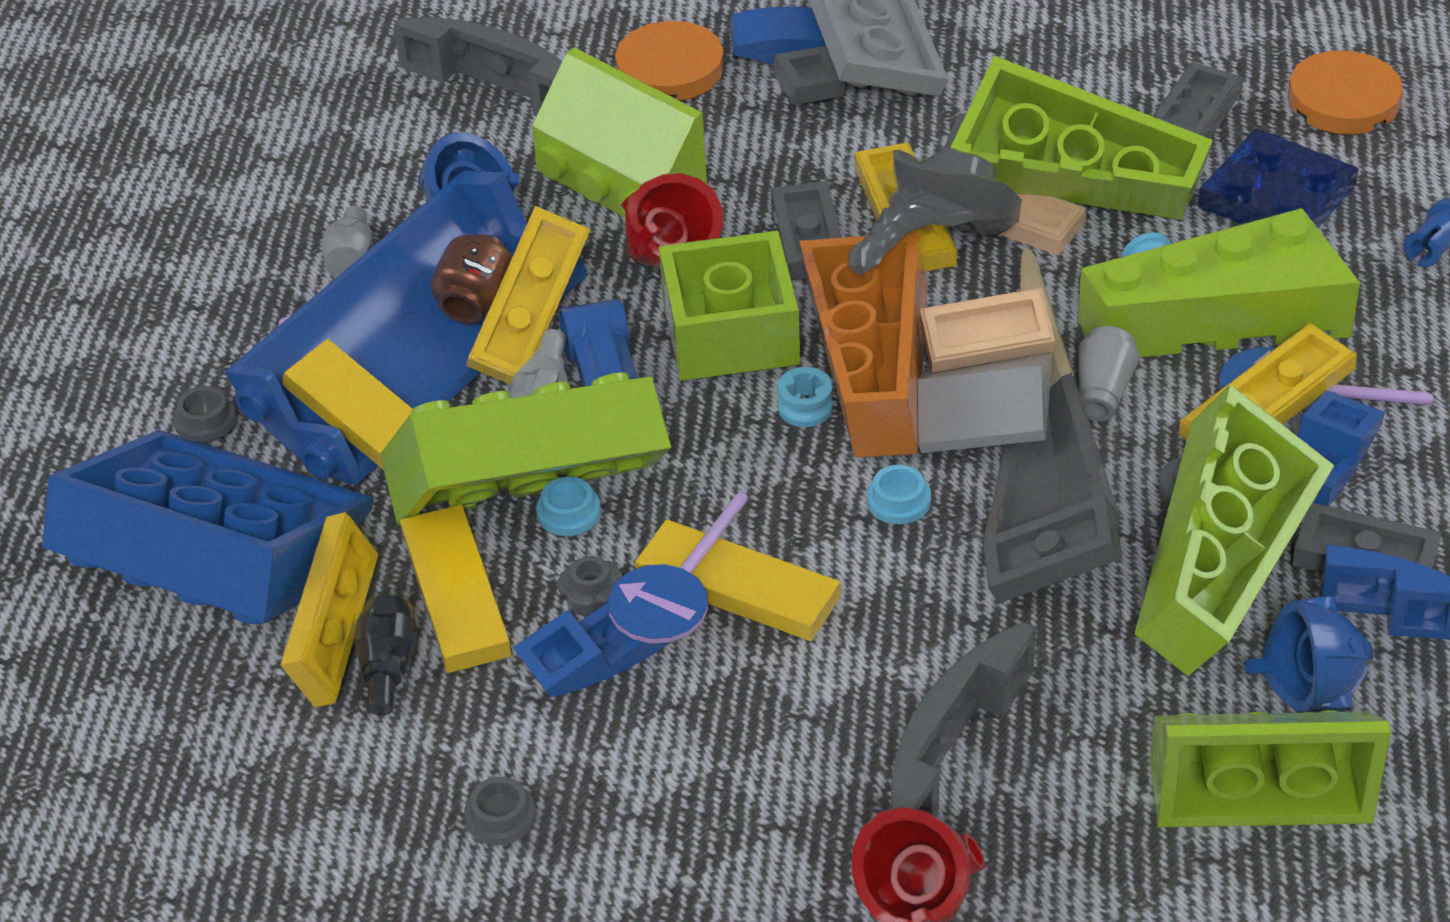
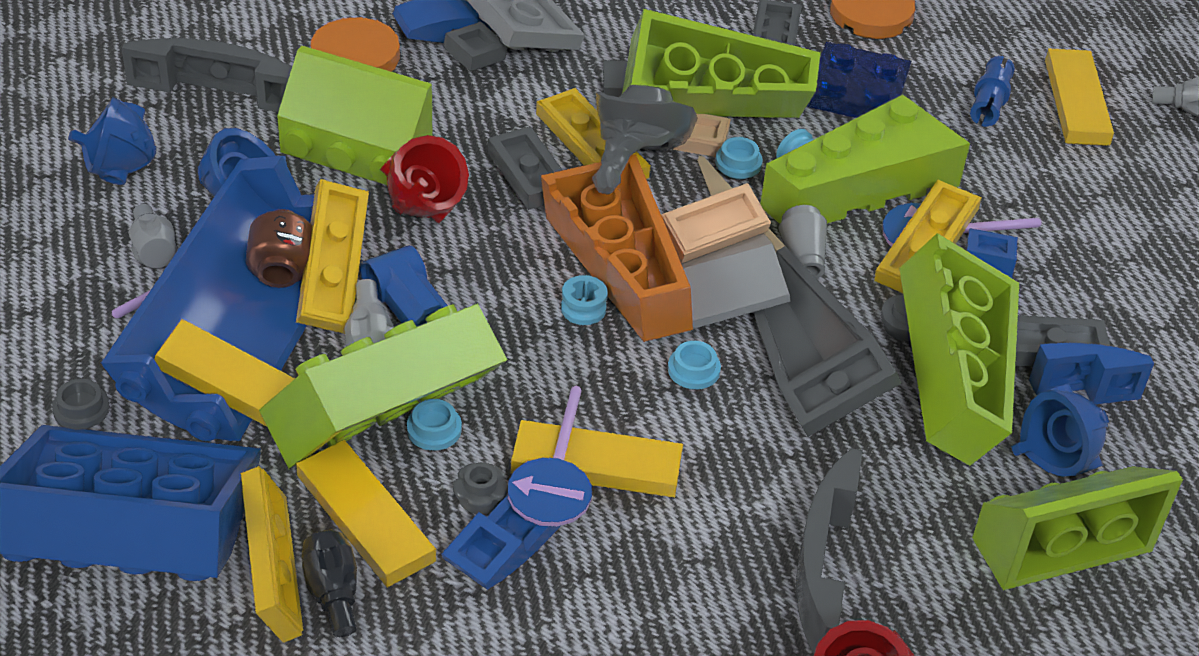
camera: 25 degrees left, 0 degrees up
(353, 131) = (117, 142): none -> blue helmet
(729, 305) = (501, 236): lime brick -> none
(1068, 254) = (739, 158): none -> medium azure plate

